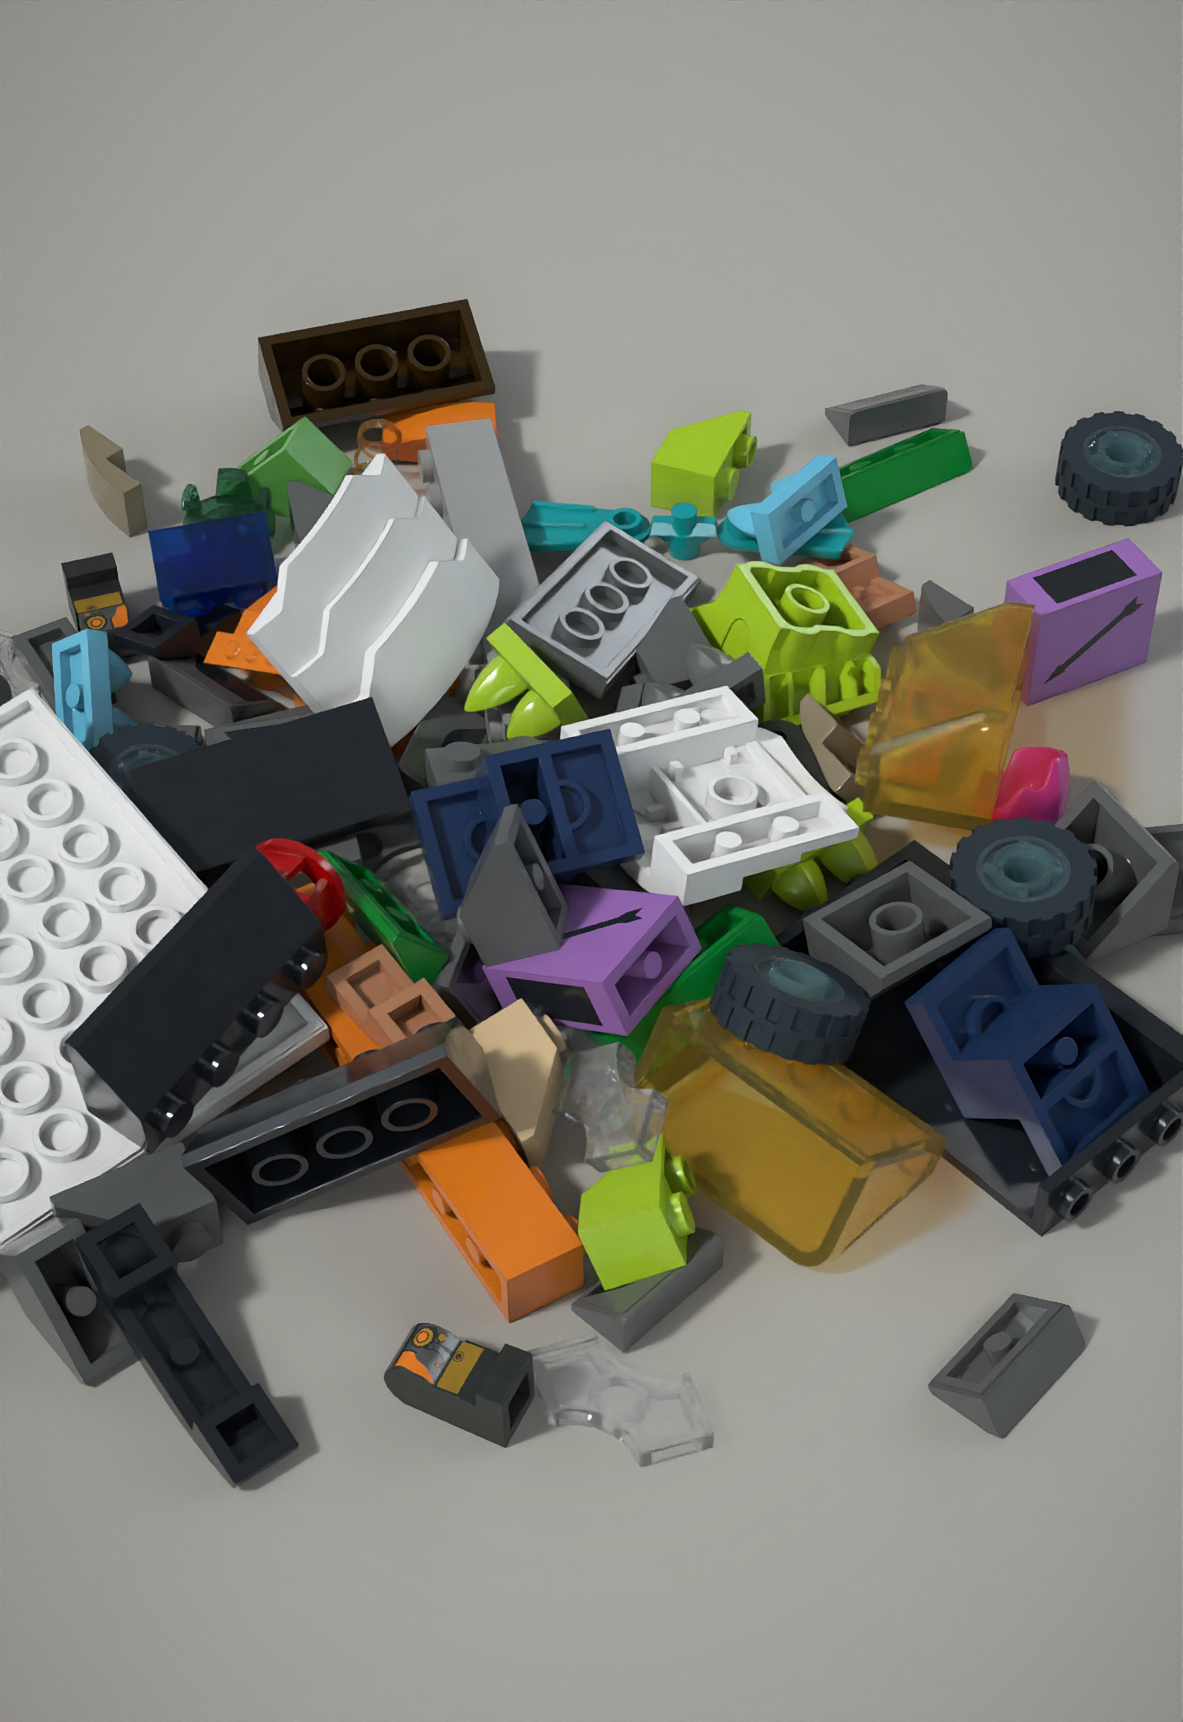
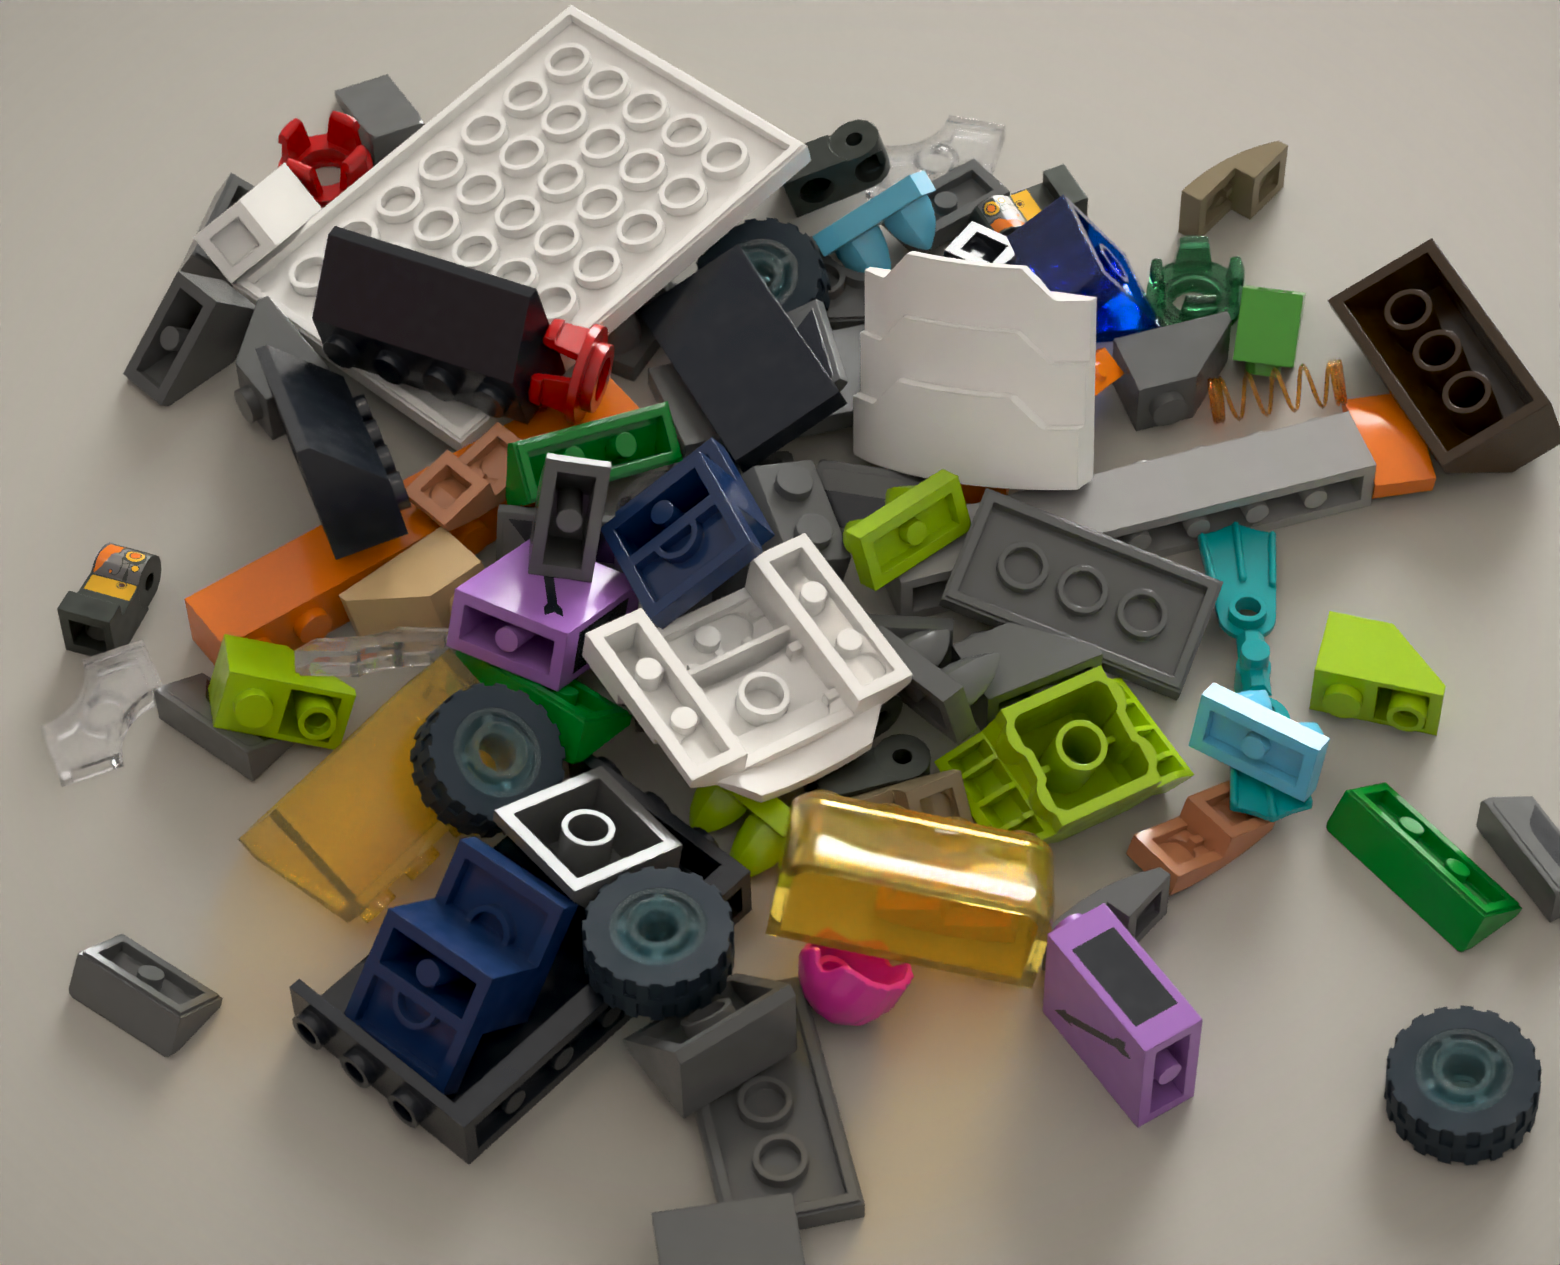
camera: 85 degrees right, 5 degrees up
(181, 1349) = (140, 419): black slope -> none

